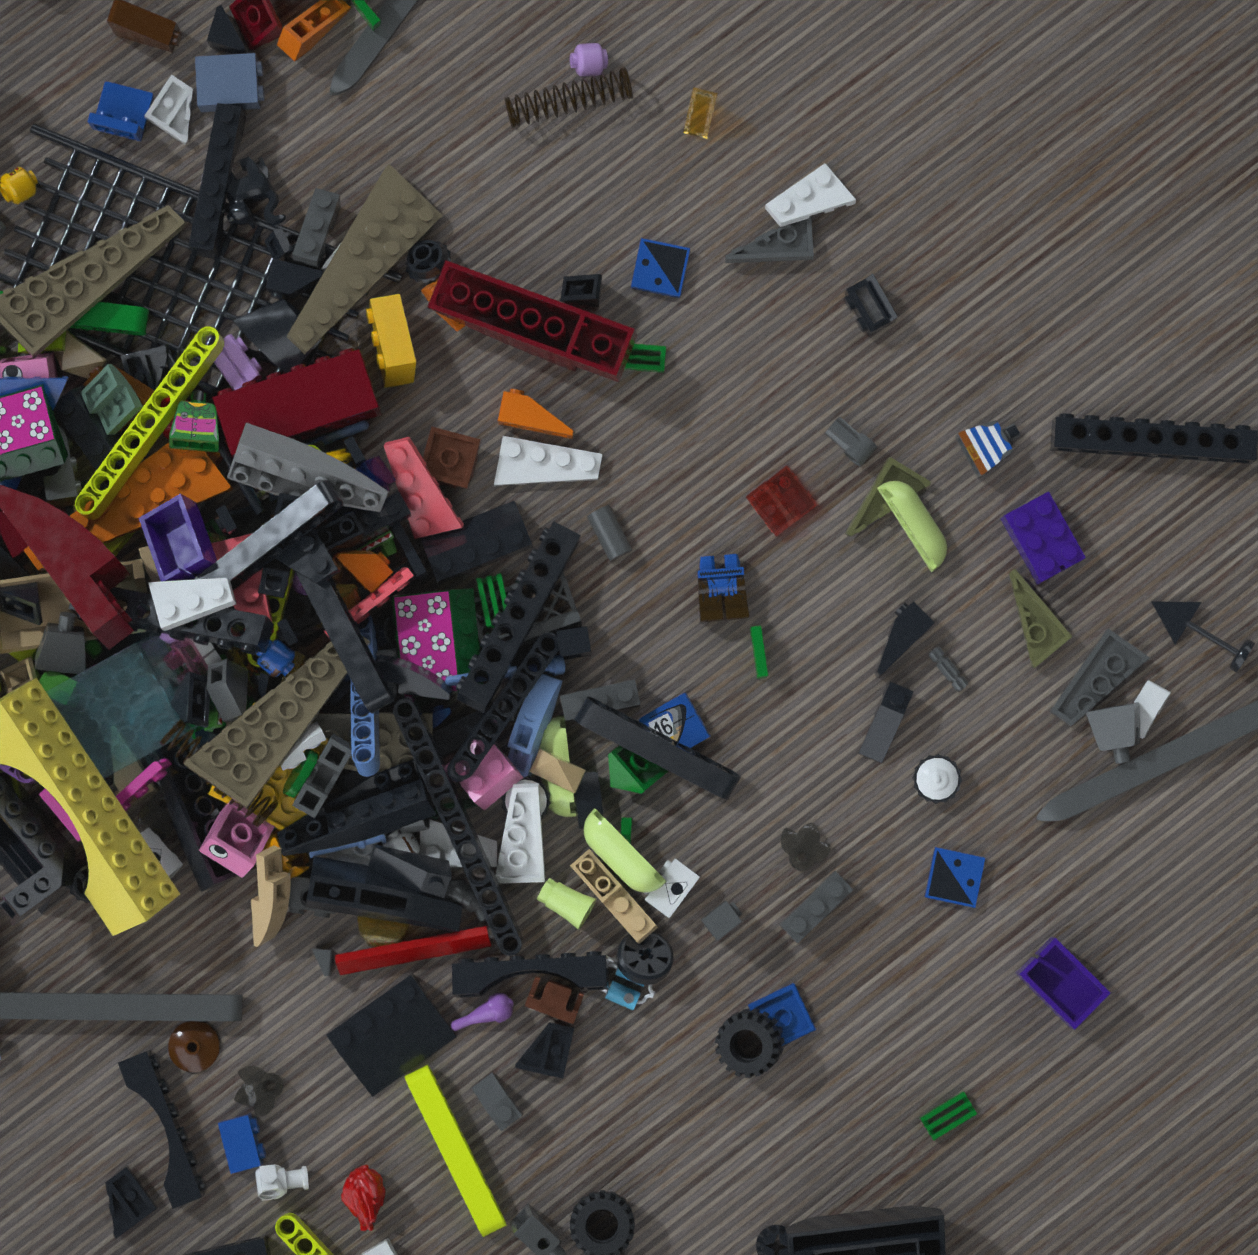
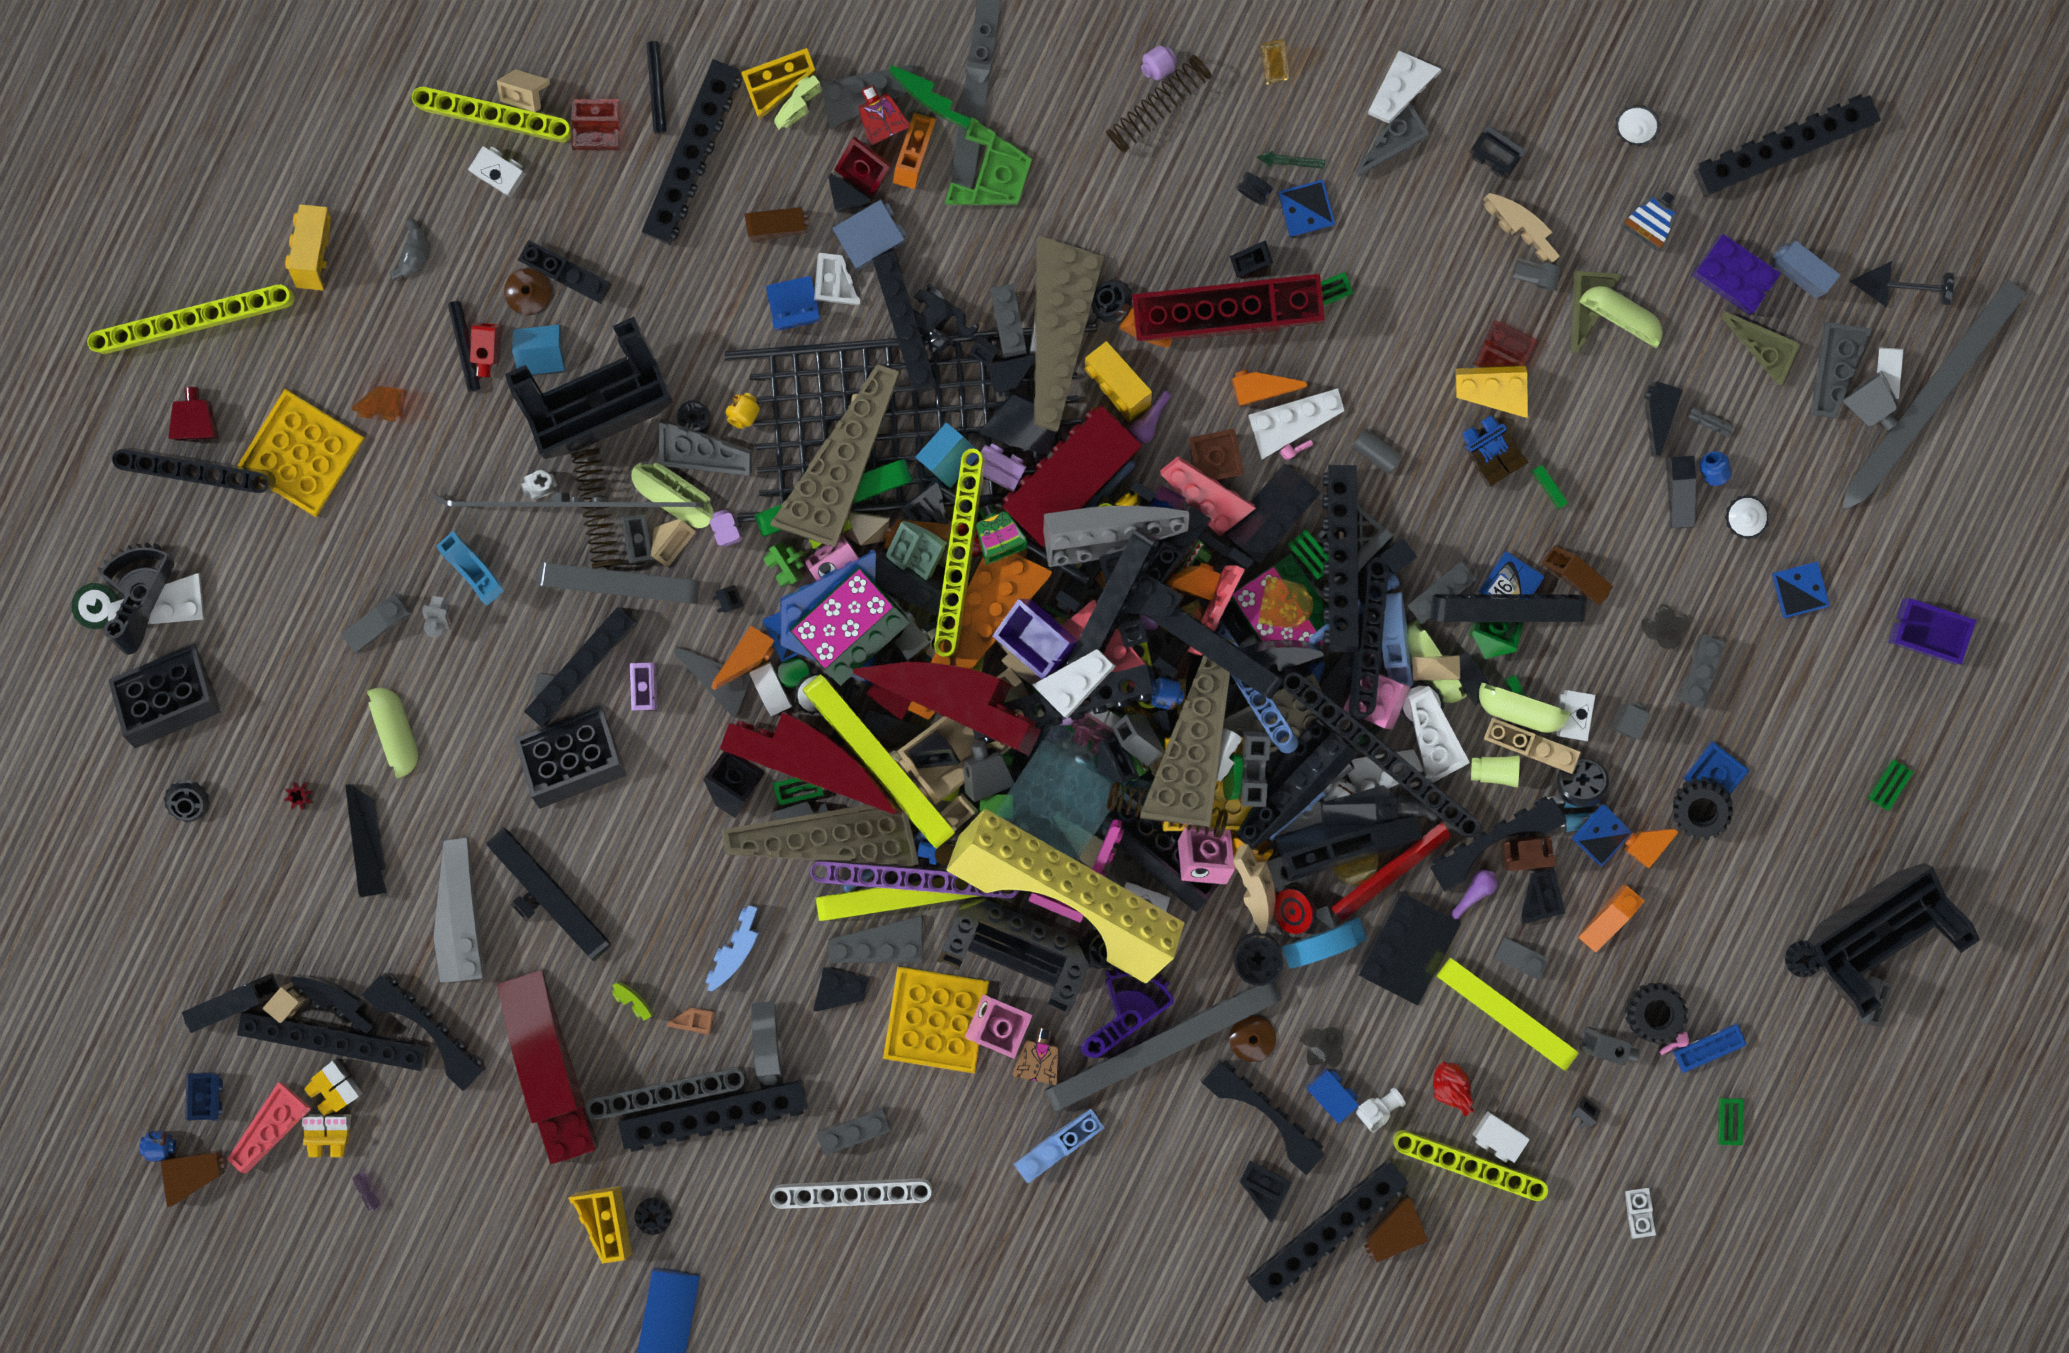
camera: 25 degrees left, 5 degrees up
(83, 945) = (1124, 1003): none -> dark purple arm
(185, 322) = (944, 454): none -> dark azure slope
(223, 974) = (1260, 972): none -> black wheel
(297, 939) = (1294, 910): none -> red tile
(311, 987) = (1324, 944): none -> dark azure arch
(383, 88) = (1000, 175): none -> bright green wing
(394, 397) = (1144, 427): none -> medium lavender piece
(439, 631) = (1285, 604): none -> clear yellow slope
(523, 492) = (1288, 452): none -> bright pink hand
(605, 1107) = (1611, 917): none -> orange slope
(618, 222) = (1254, 188): none -> black wheel
(637, 1019) = (1602, 835): none -> blue tile
(650, 204) = (1271, 158): none -> clear green piece
(679, 1052) = (1649, 844): none -> orange slope
(743, 751) = (1577, 574): none -> reddish brown slope
(753, 529) = (1495, 387): none -> yellow wedge
(857, 378) = (1516, 217): none -> tan slope
(929, 715) = (1715, 468): none -> blue head
(1018, 347) = (1637, 125): none -> white piece
(1111, 565) = (1804, 269): none -> sand blue brick

